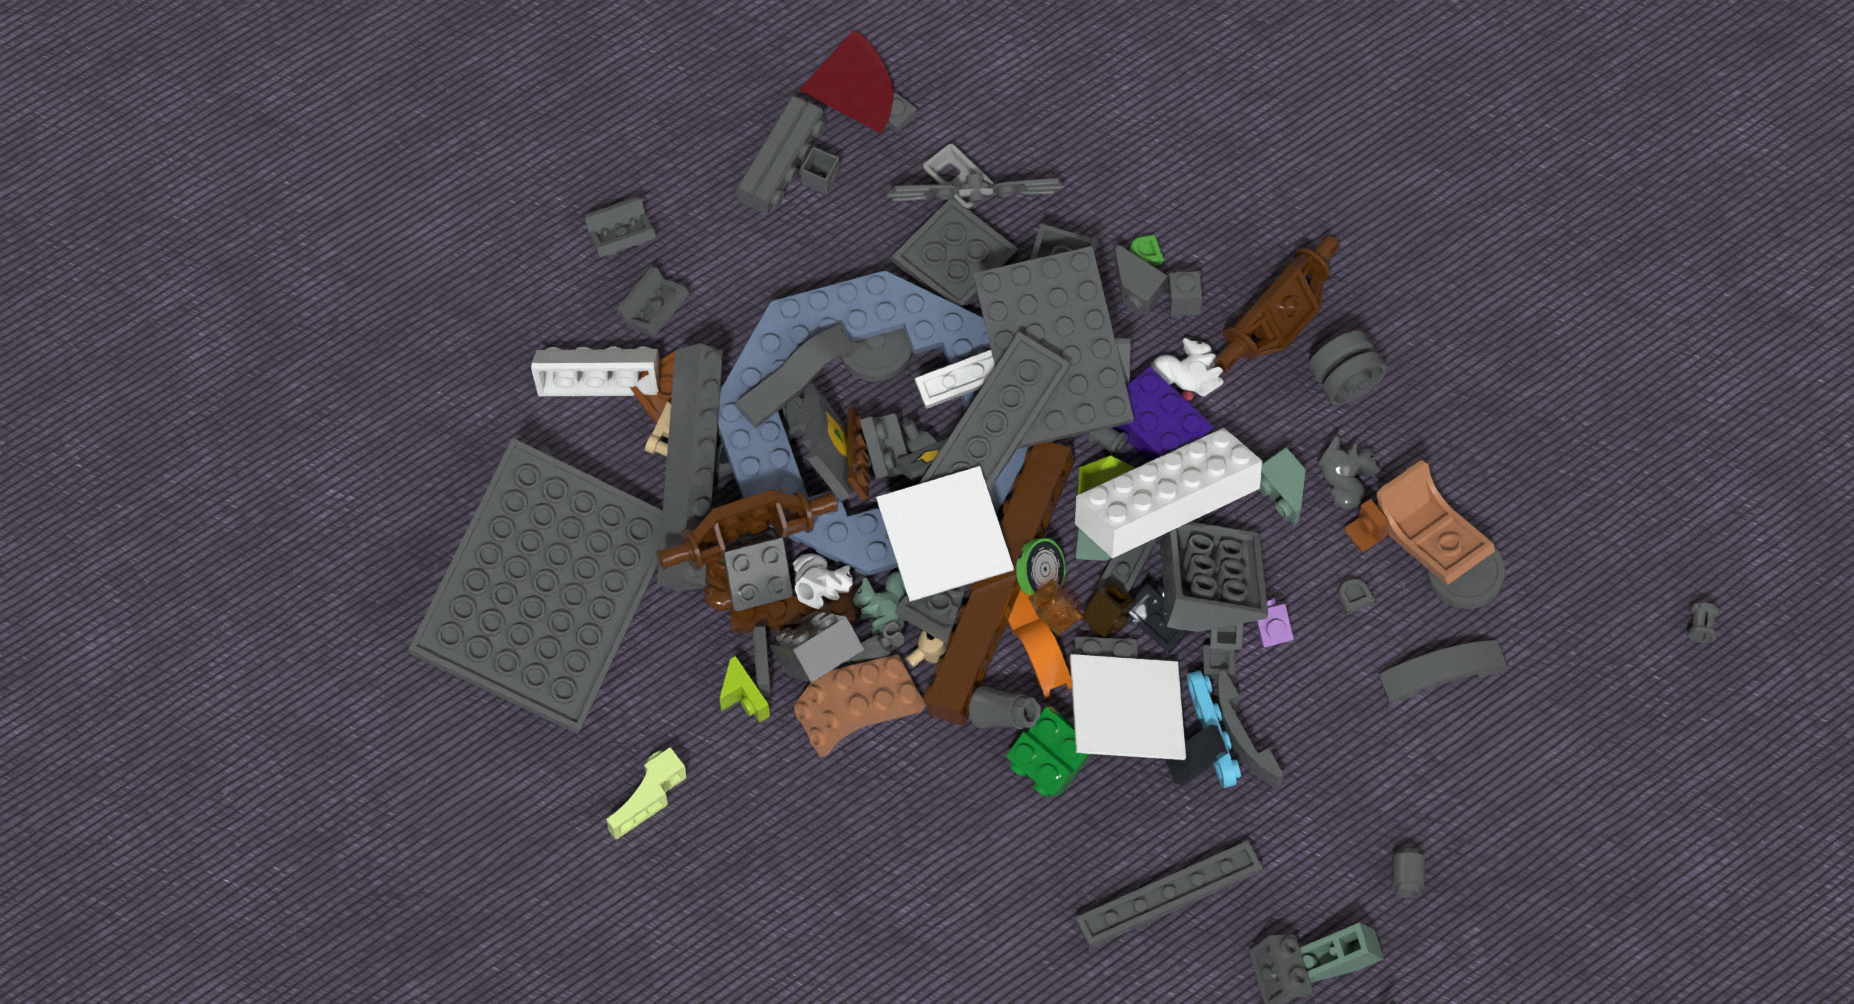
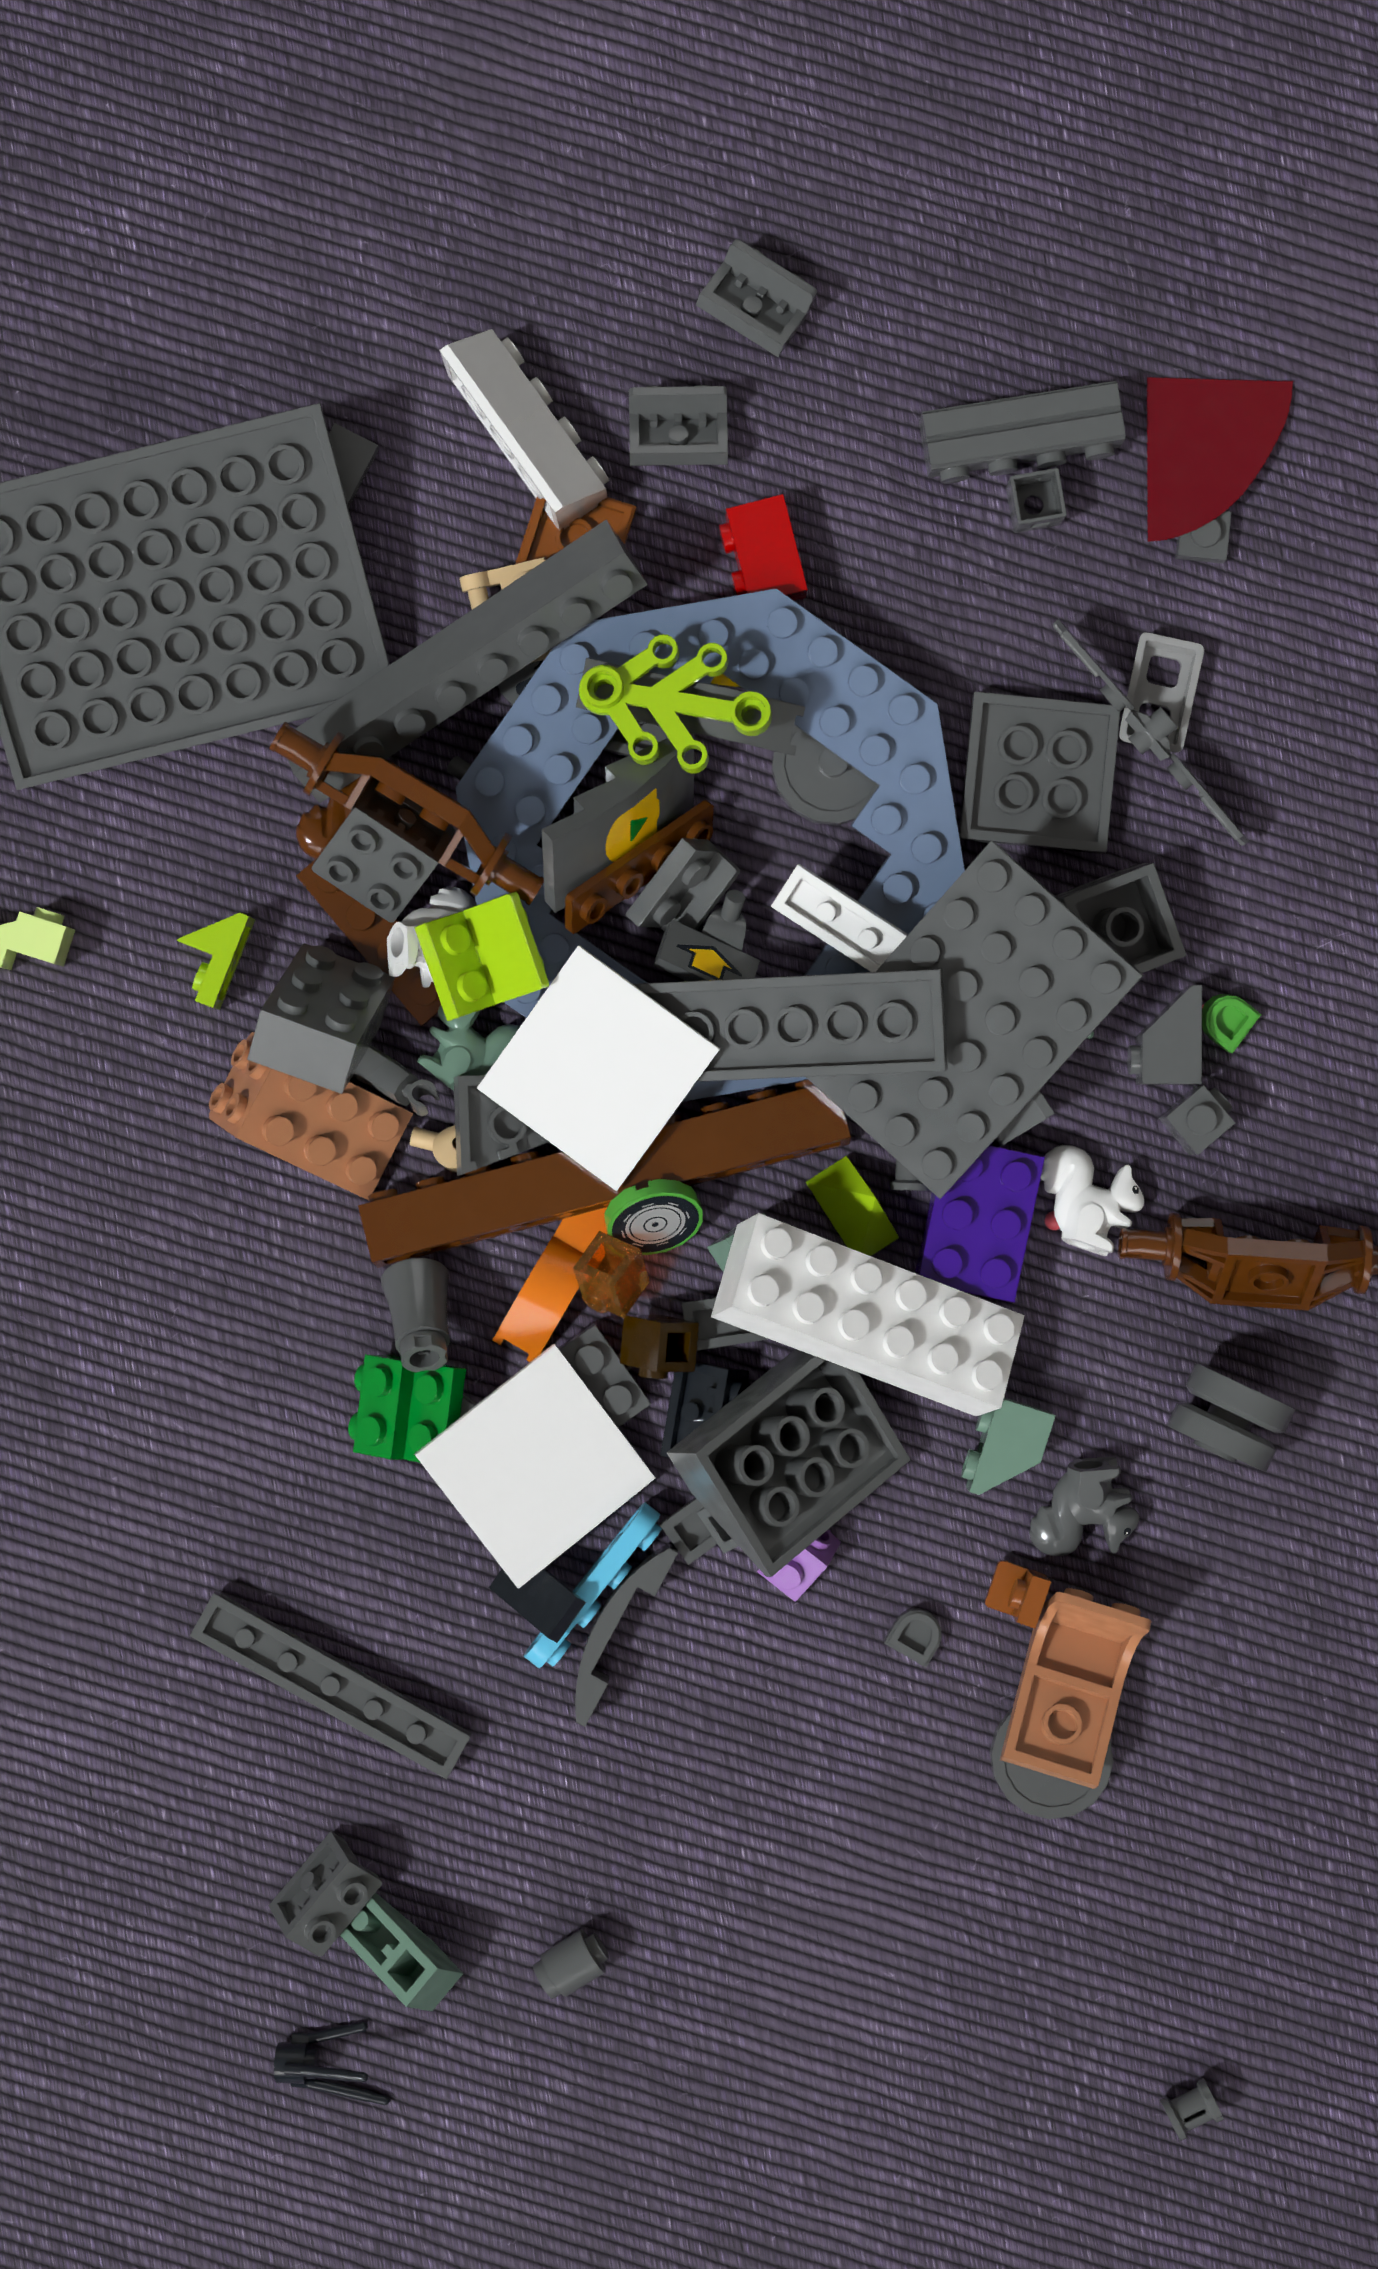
camera: 50 degrees right, 25 degrees up
(742, 302) = (763, 548): none -> red brick
(761, 661) = (275, 950): dark grey tile -> none
(790, 374) = (667, 699): none -> lime plant
(846, 548) = (482, 956): none -> lime bracket
(1442, 667) = (888, 1819): dark grey slope -> none

